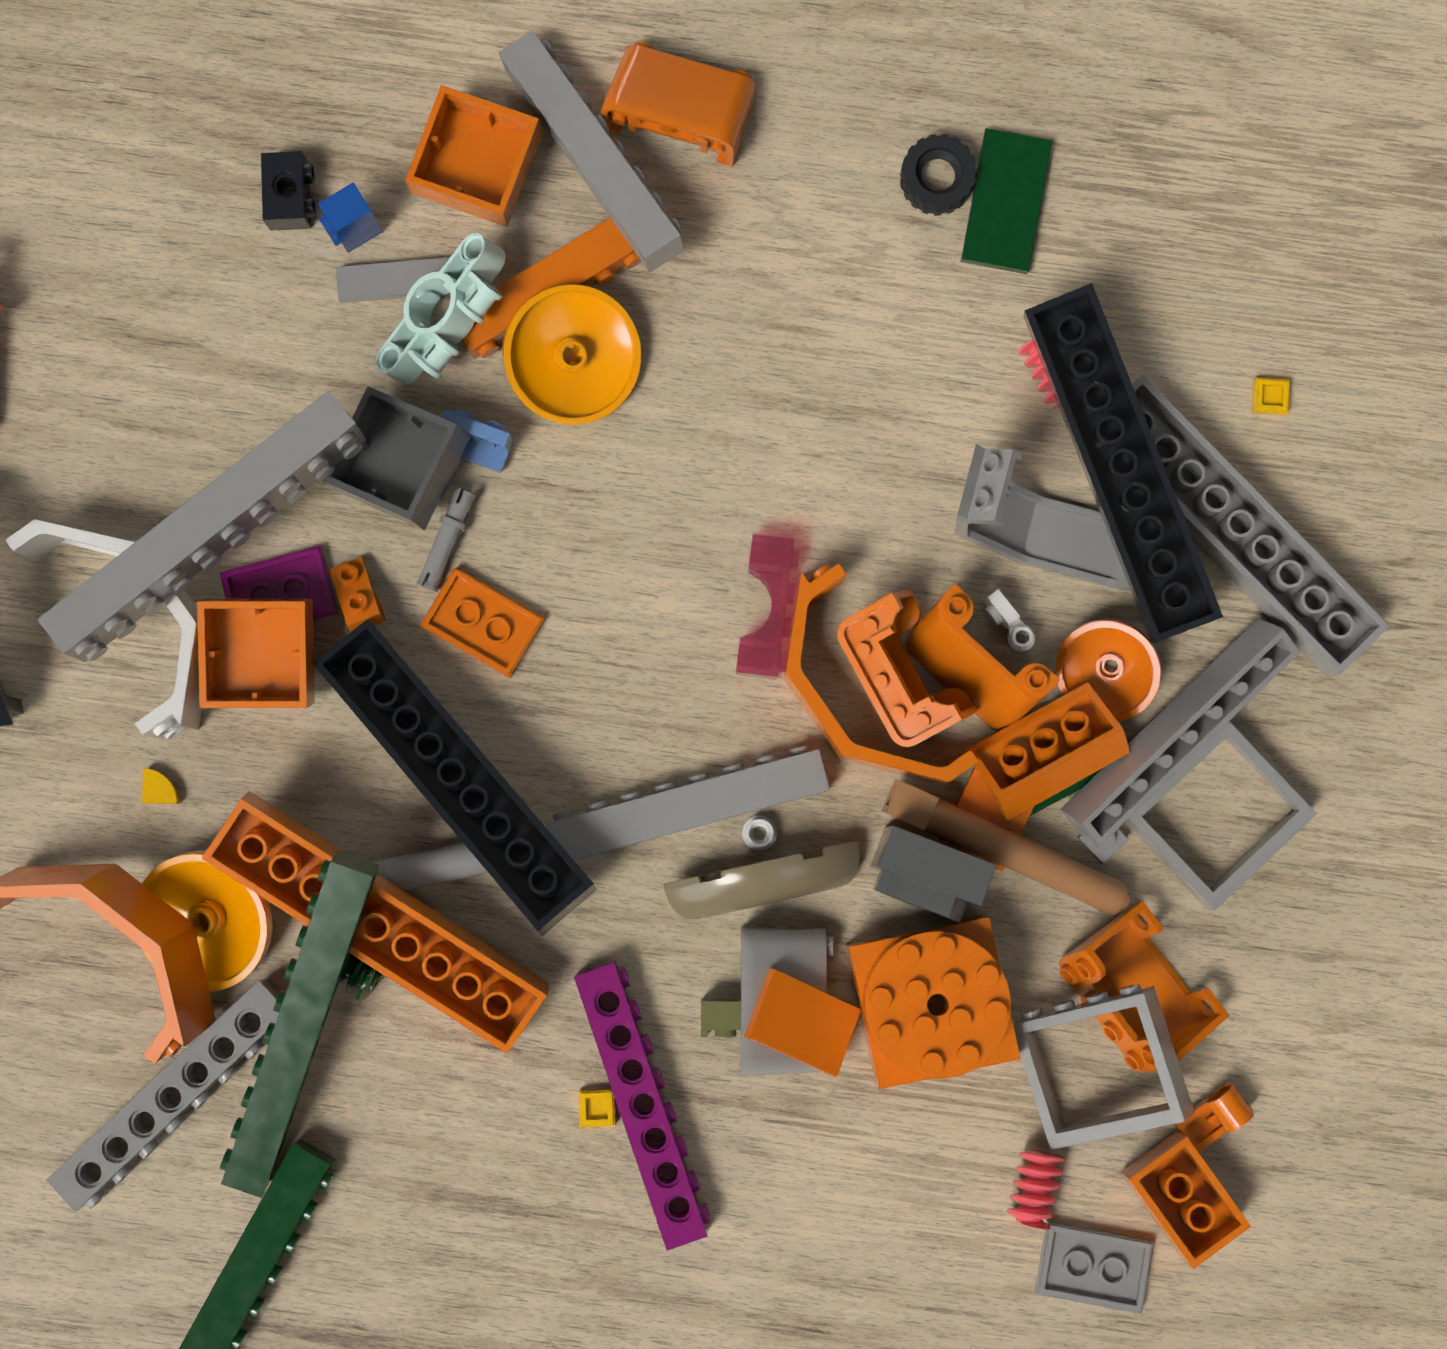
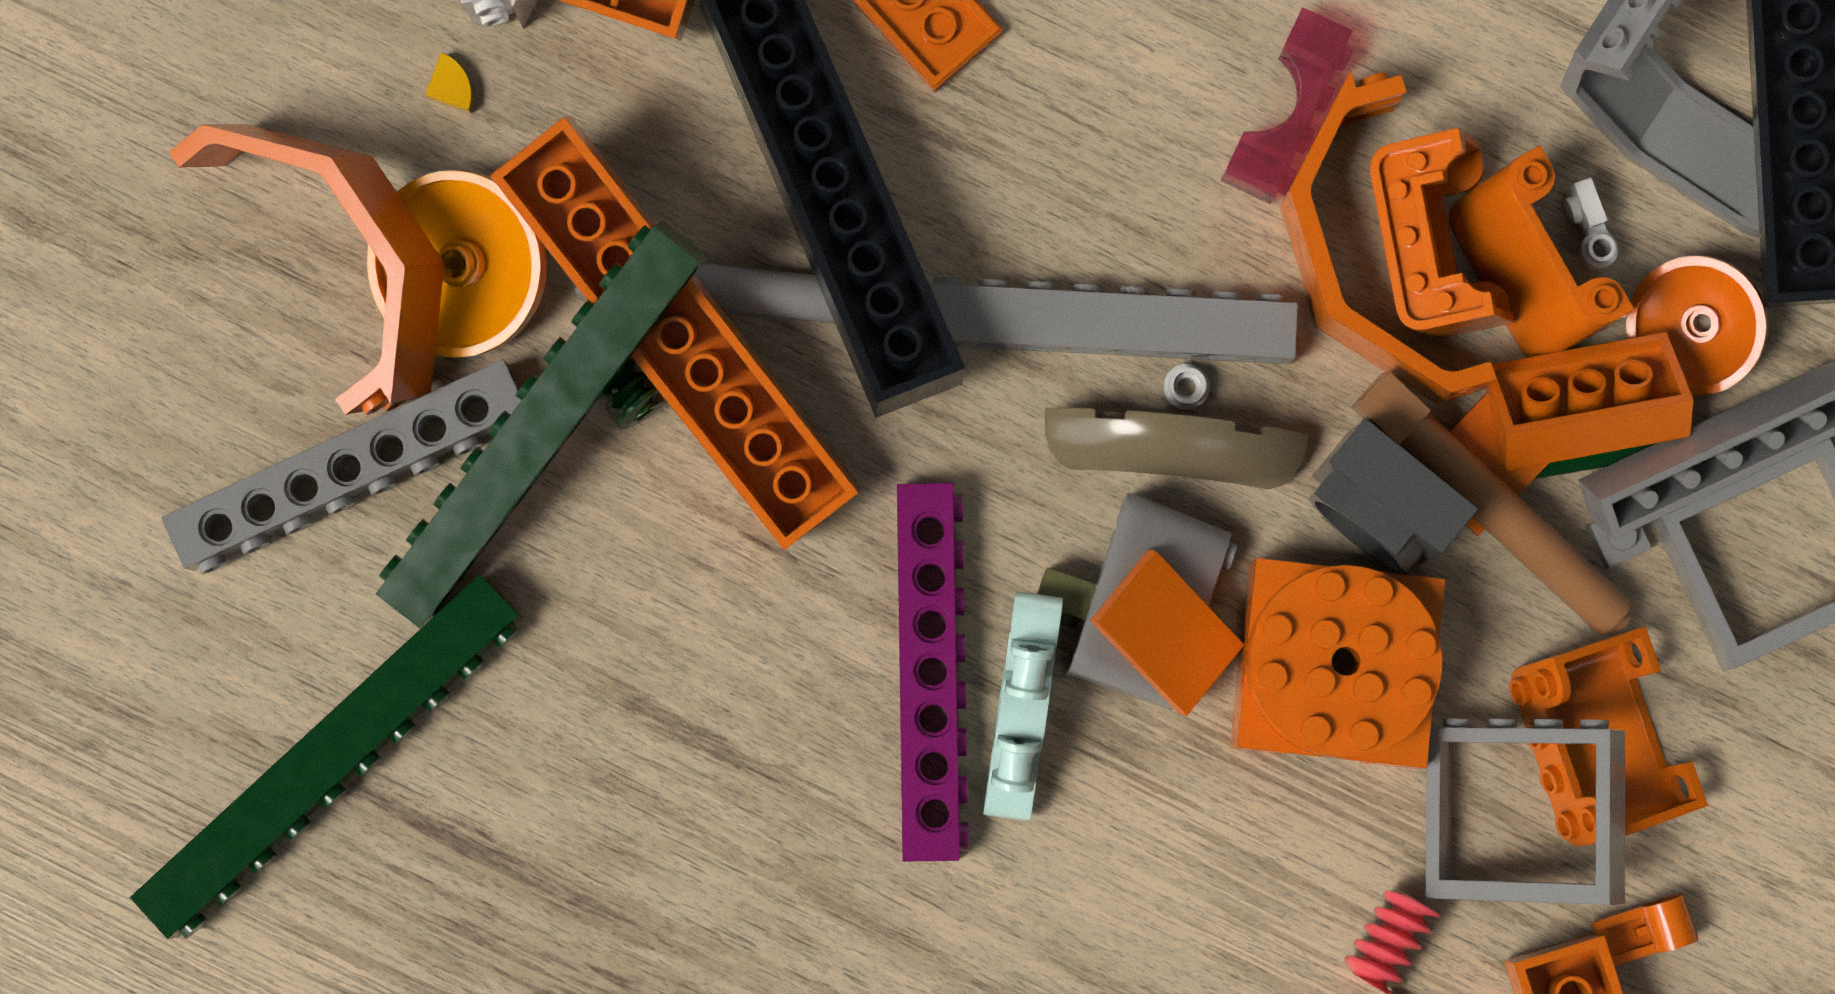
camera: 20 degrees right, 0 degrees up
(596, 1108) = (870, 661): yellow tile -> none
(716, 1107) = (1023, 706): none -> light aqua piece

